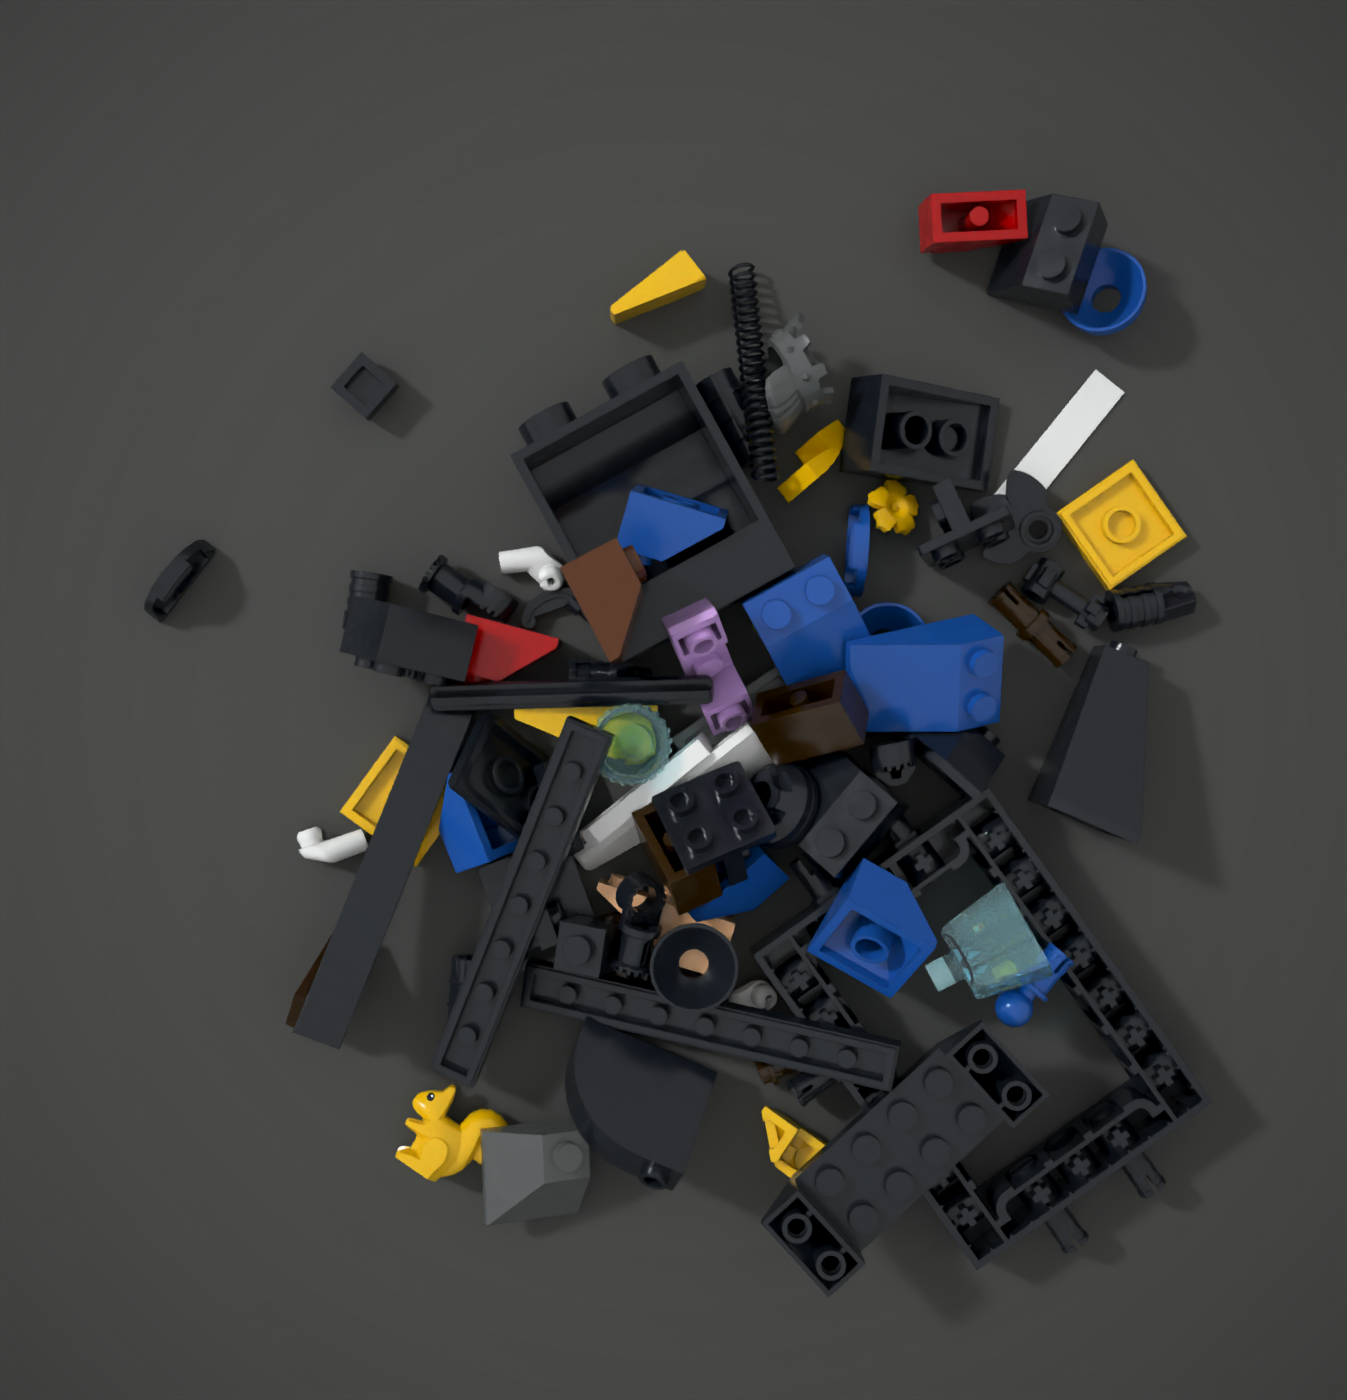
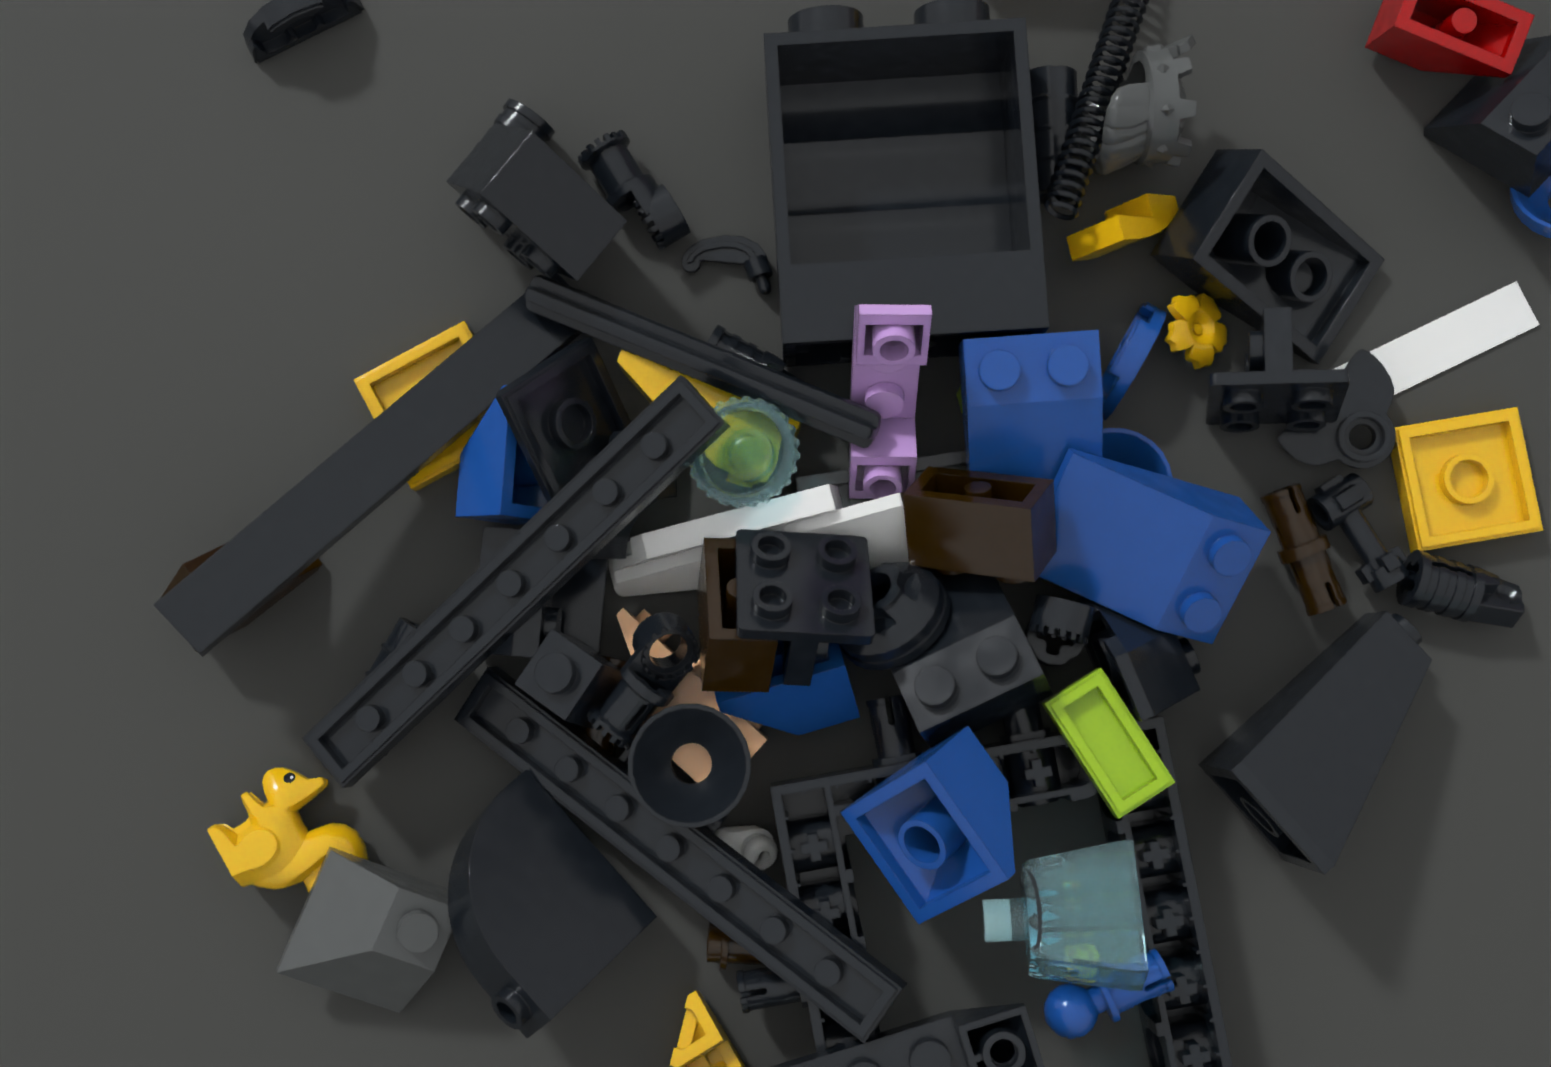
camera: 30 degrees right, 5 degrees down
(331, 850) = (321, 421): white arm -> none
(505, 650) = (647, 277): red slope -> none
(536, 562) = (733, 195): white arm -> none
(609, 593) = (810, 228): reddish brown slope -> none
(666, 523) = (910, 206): blue slope -> none
(960, 822) = (1108, 743): none -> lime tile

